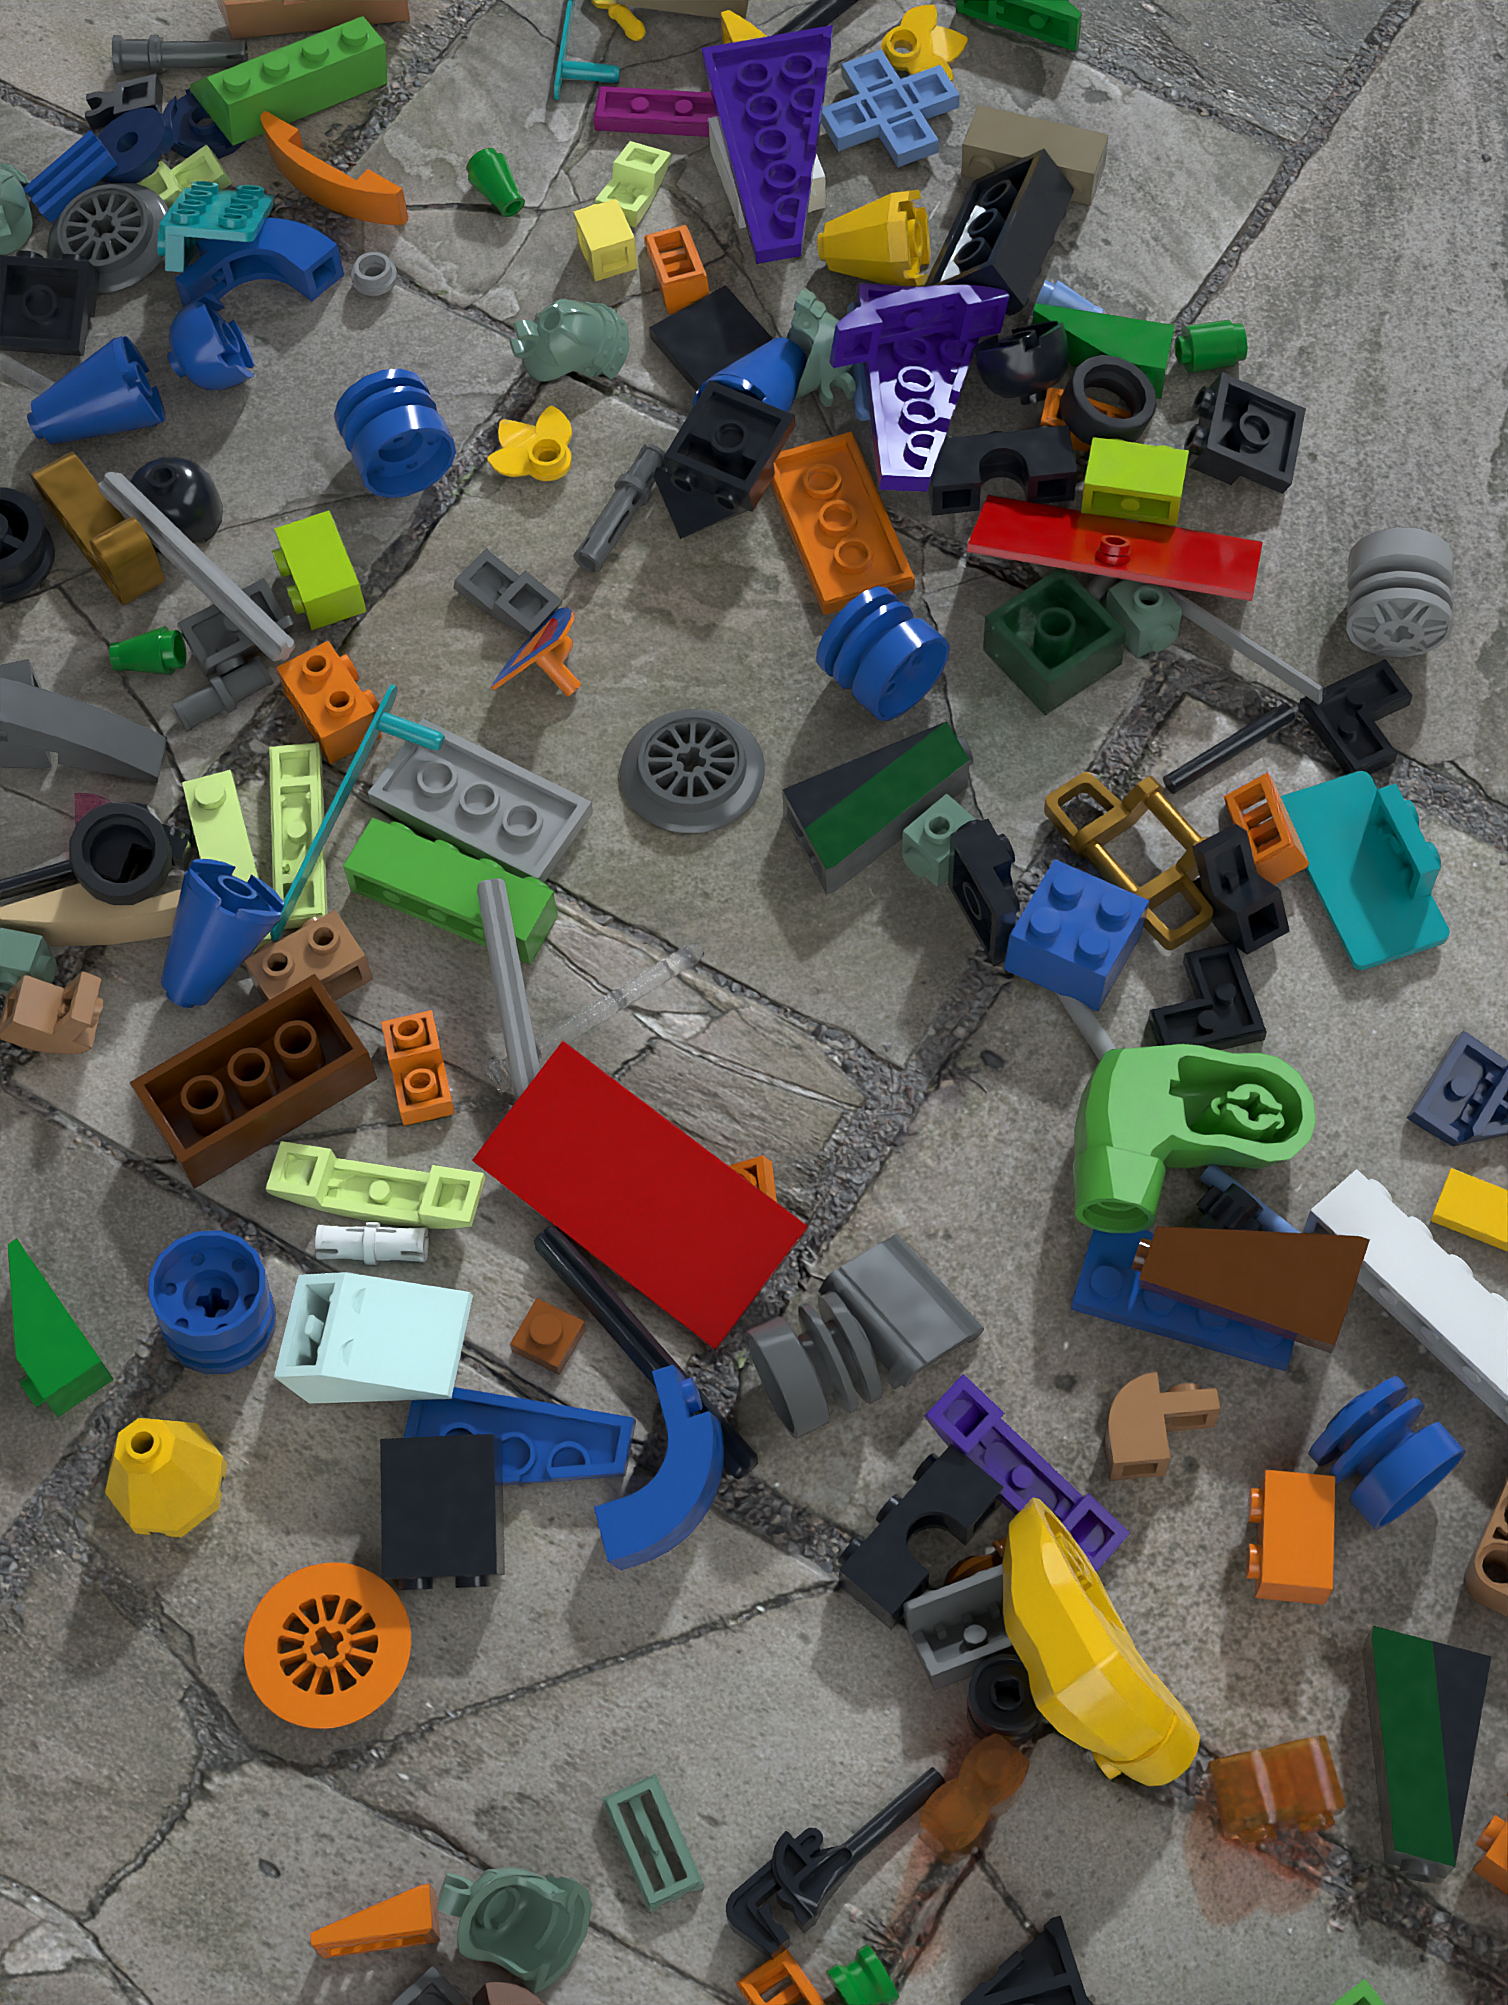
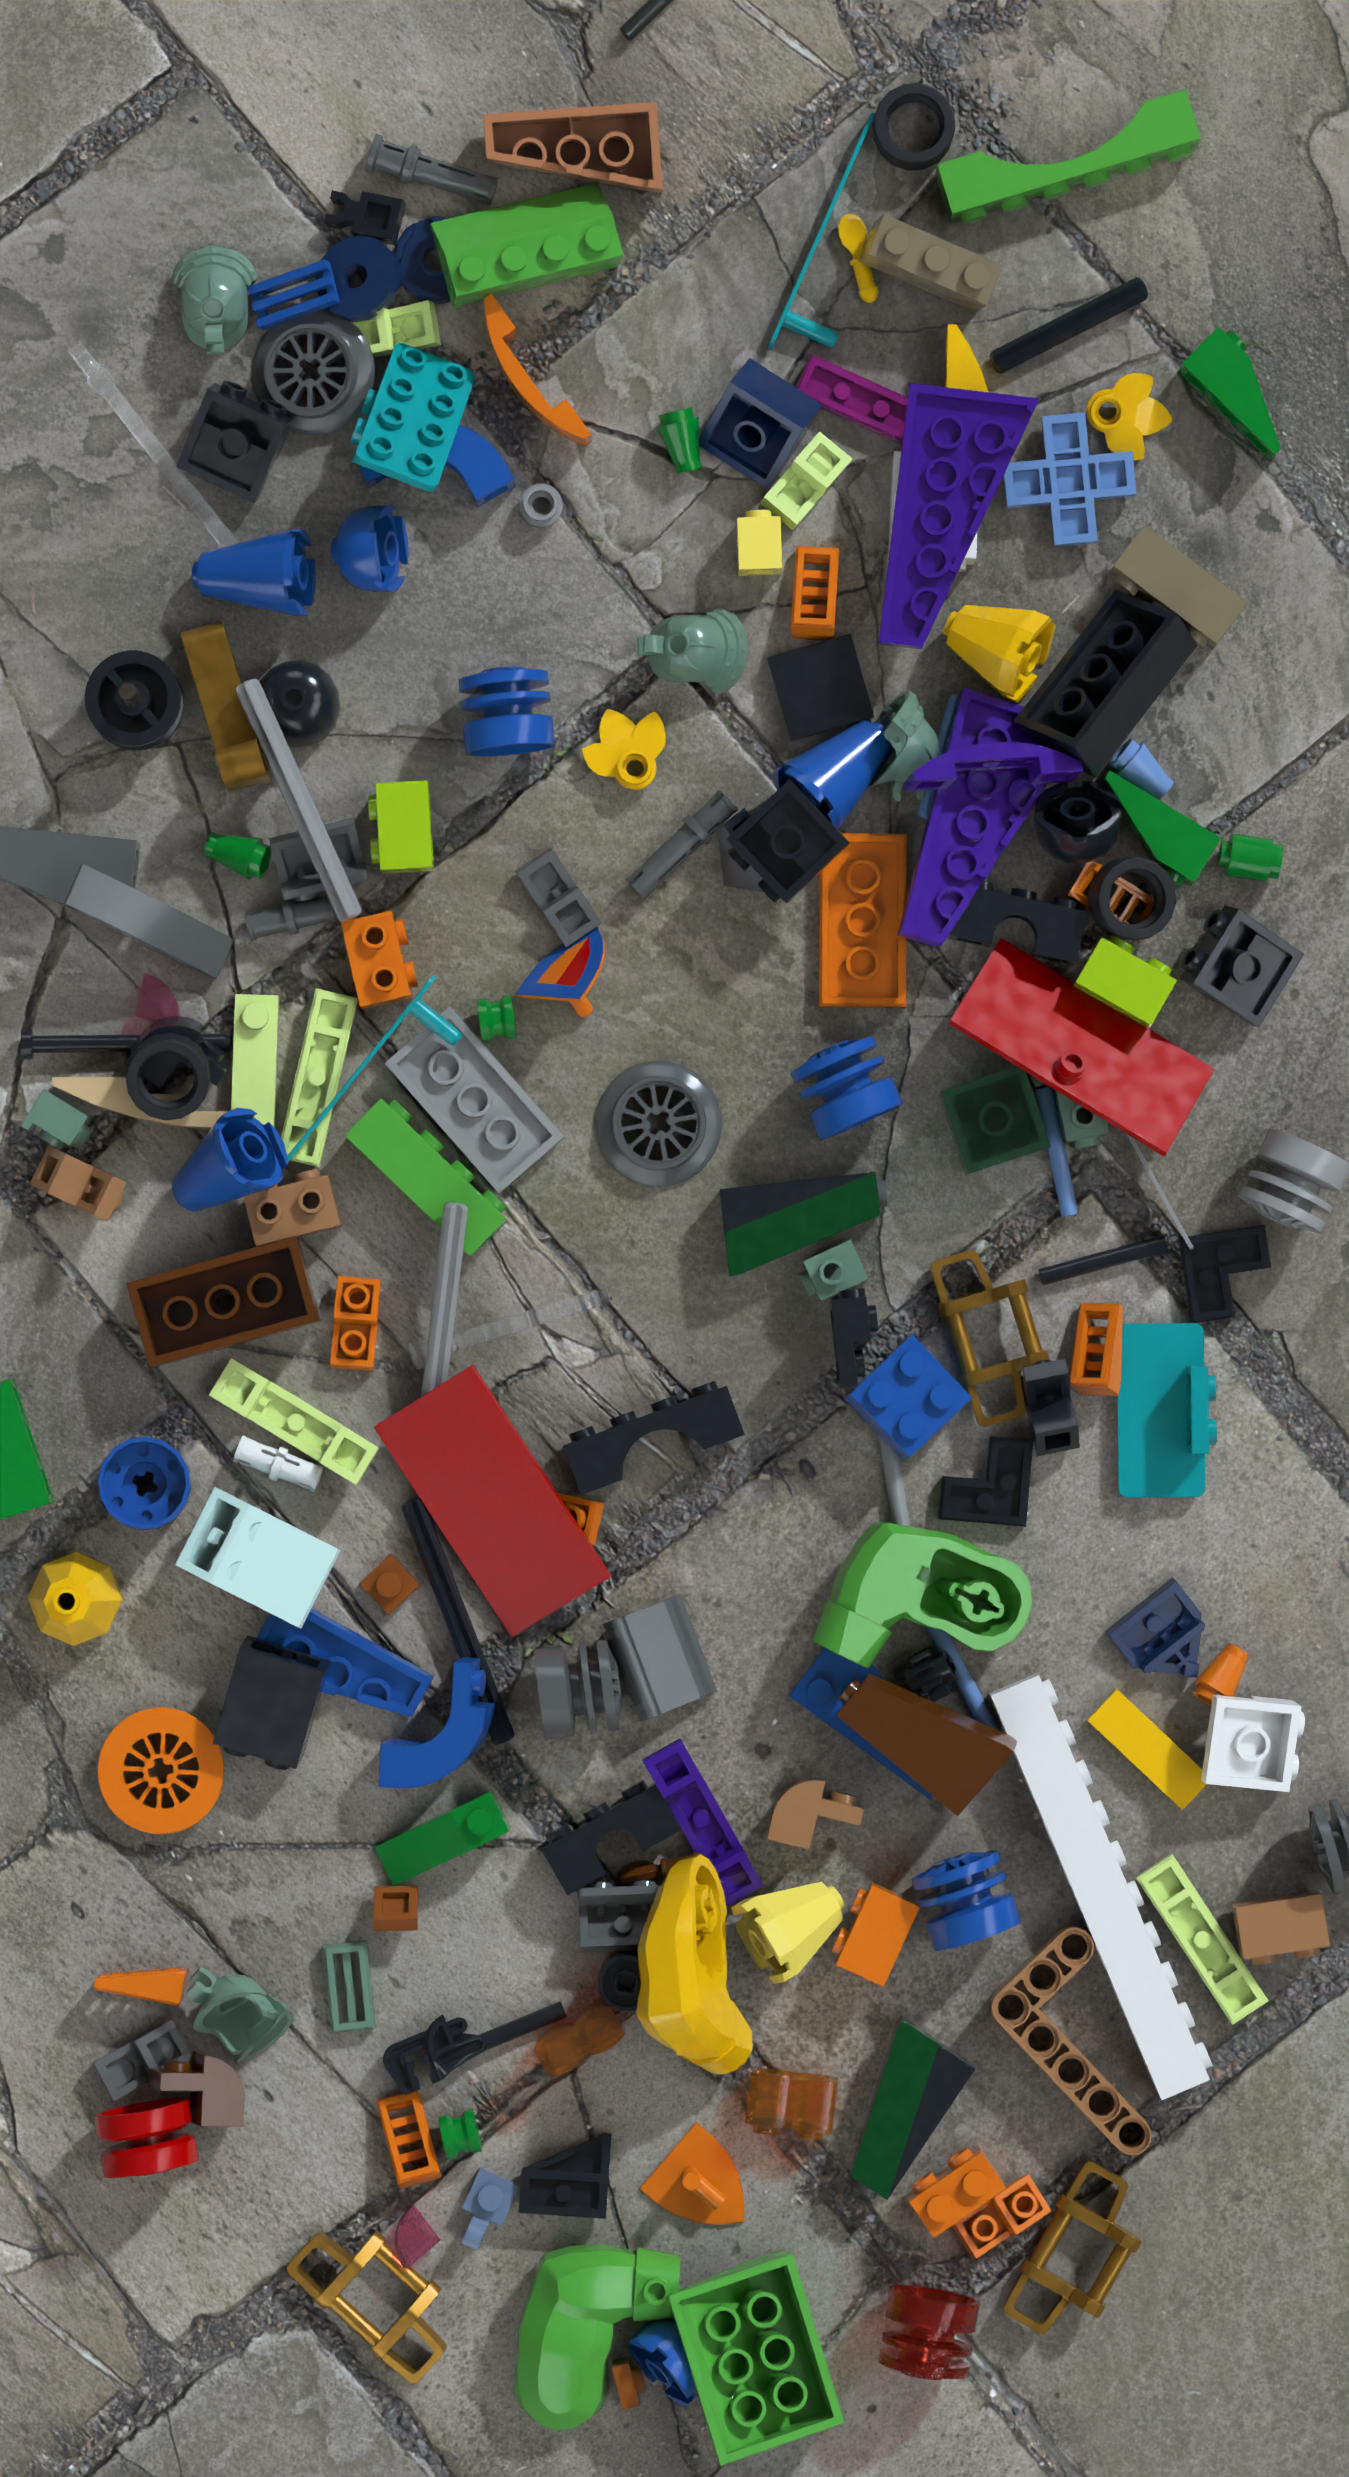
camera: 15 degrees right, 25 degrees up
(479, 716) = (496, 1018): none -> green wheel
(566, 148) = (759, 423): none -> dark blue slope
(680, 1716) = (395, 1908): none -> dark orange plate
(712, 1605) = (443, 1837): none -> green slope
(853, 1033) = (600, 1457): none -> black arch
(1149, 685) = (1057, 1152): none -> medium blue bar
(1177, 1567) = (788, 1926): none -> light yellow cone
(1197, 1947) = (698, 2181): none -> orange shield

